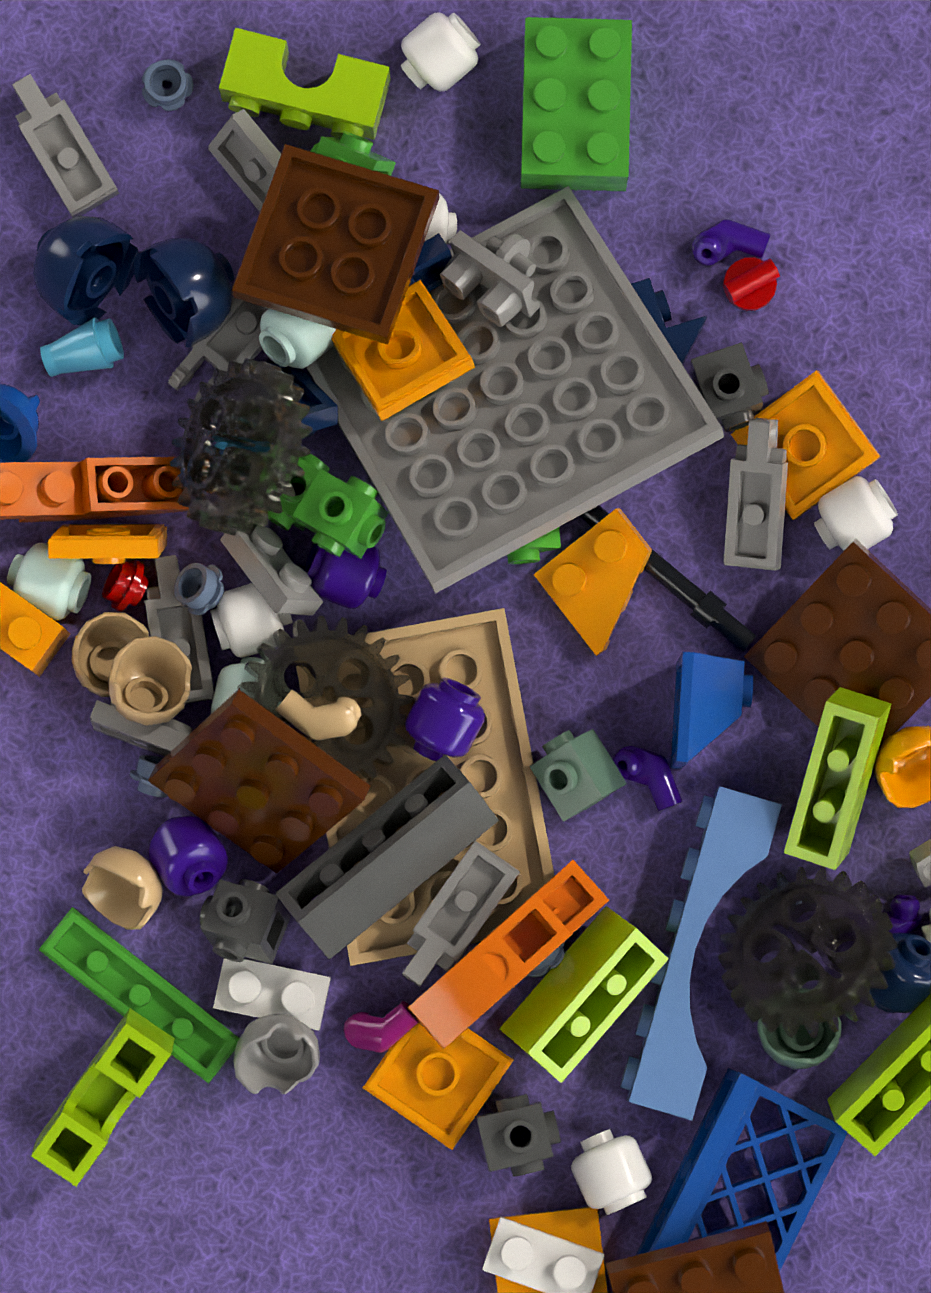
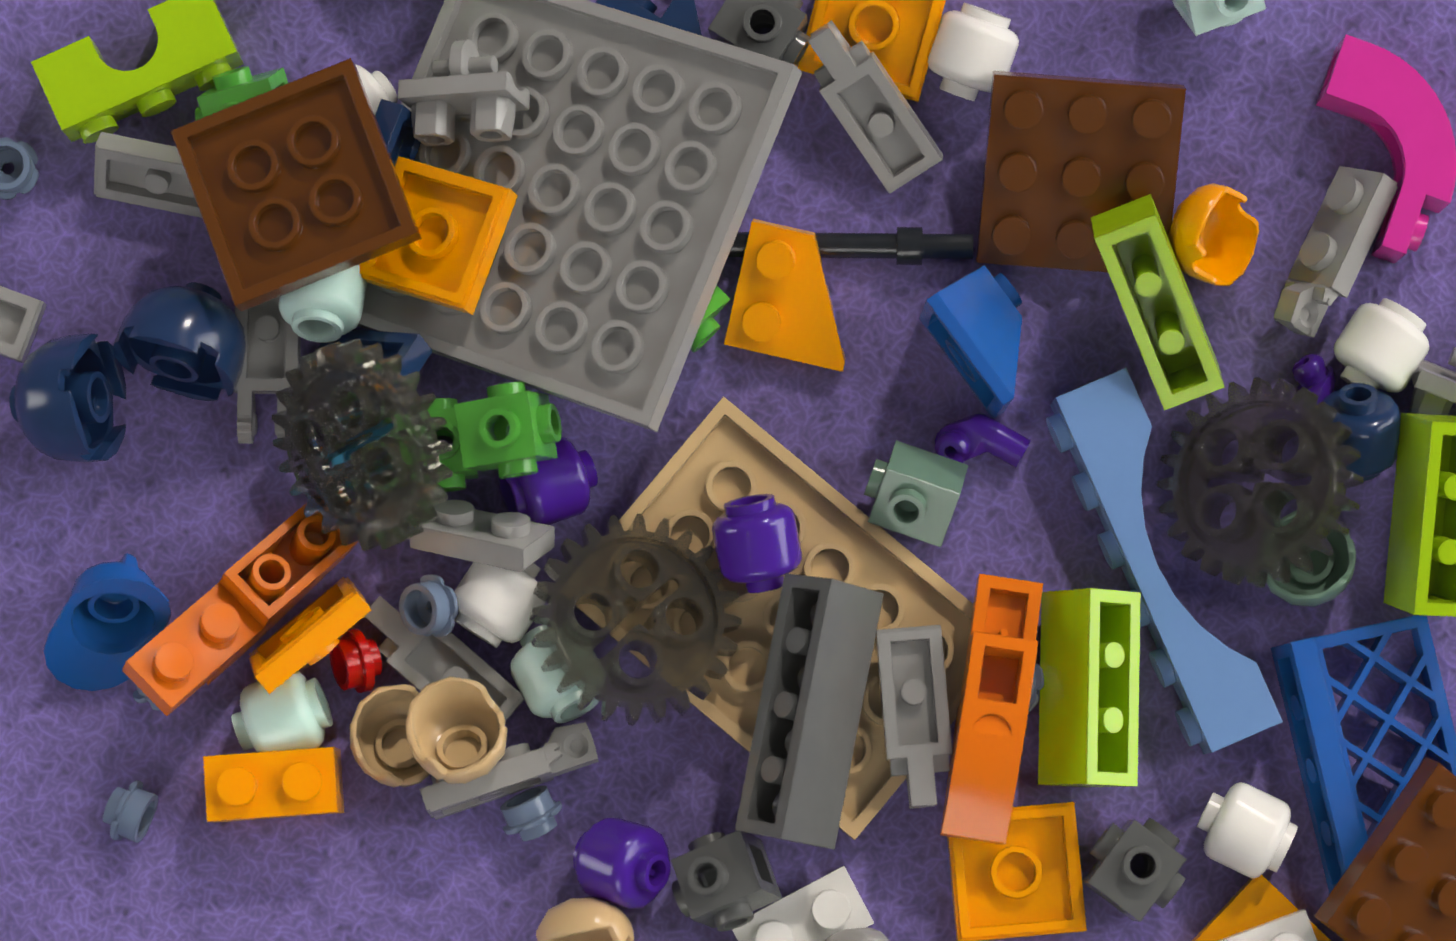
camera: 45 degrees left, 0 degrees up
(86, 348) = (135, 474): medium azure cone -> none
(258, 782) = (635, 739): reddish brown plate -> none
(321, 721) = (649, 635): tan arm -> none
(379, 1033) = (933, 879): magenta arm -> none

